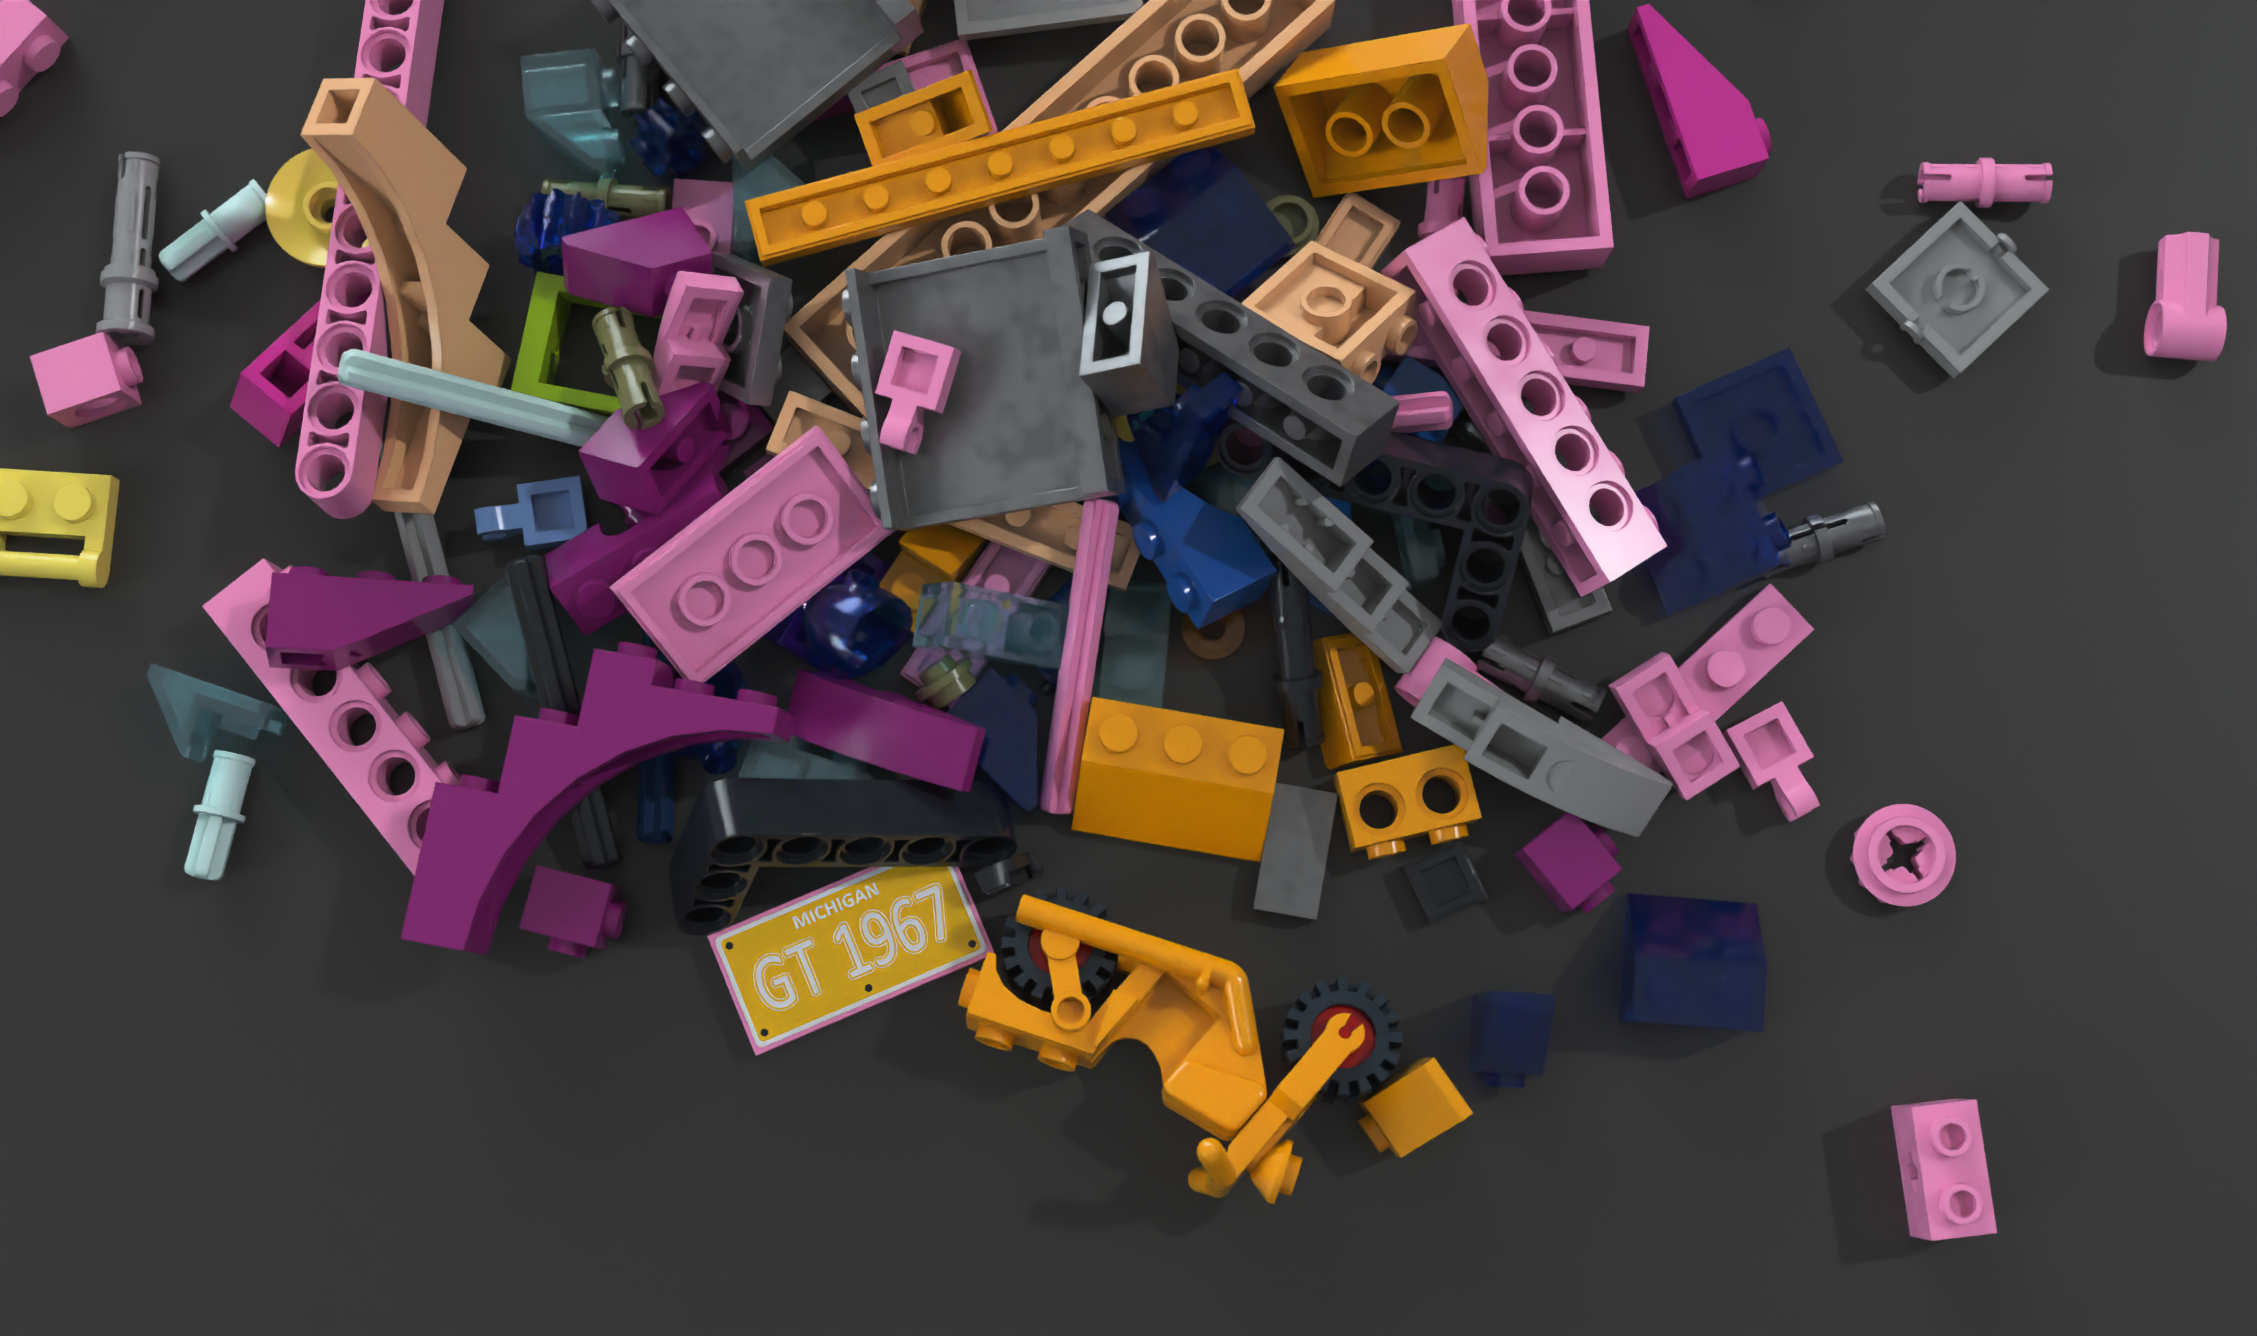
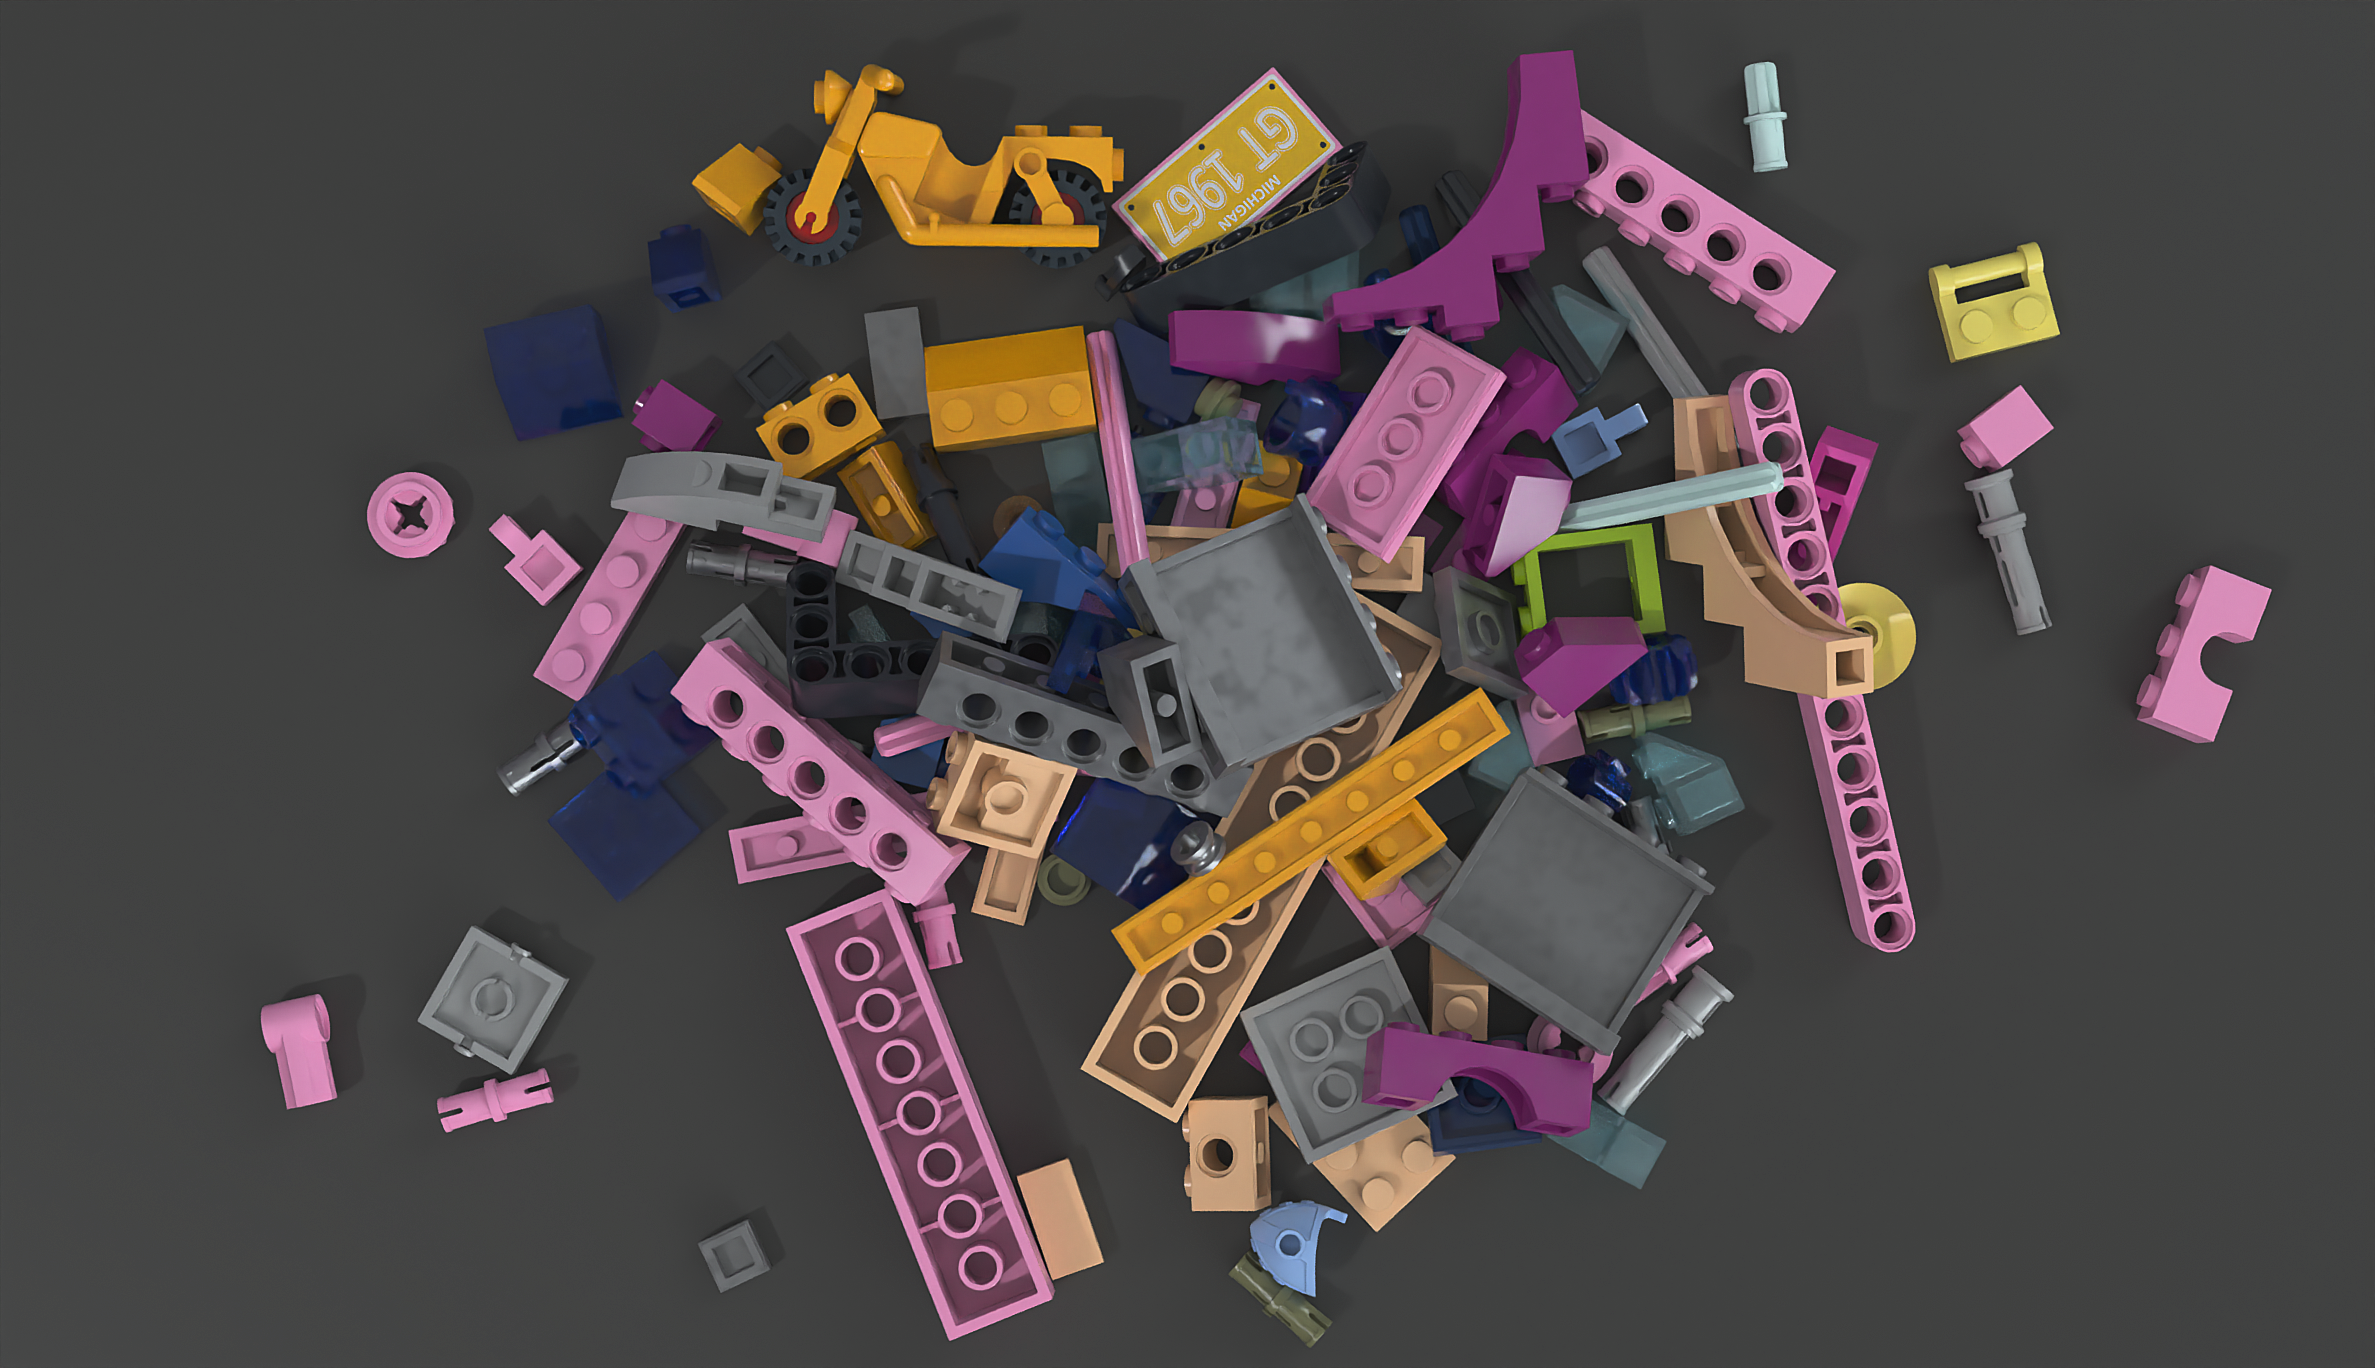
camera: 165 degrees right, 5 degrees up
(196, 707) = (1817, 197): clear light blue slope -> none
(215, 232) = (1947, 588): light aqua axle -> none
(343, 620) = (1718, 288): magenta slope -> none
(573, 911) = (1455, 131): magenta brick -> none
(628, 368) = (1557, 563): olive pin -> none
(694, 330) = (1516, 610): bright pink slope -> none
(915, 378) = (1315, 619): bright pink plate -> none
(1119, 171) = (1198, 848): none -> flat silver bush
(1388, 111) = (1008, 990): light orange slope -> none
(1674, 726) = (623, 554): bright pink slope -> none
(1698, 109) = (745, 1078): dark pink slope -> none
(1943, 1169) = (312, 273): bright pink brick -> none

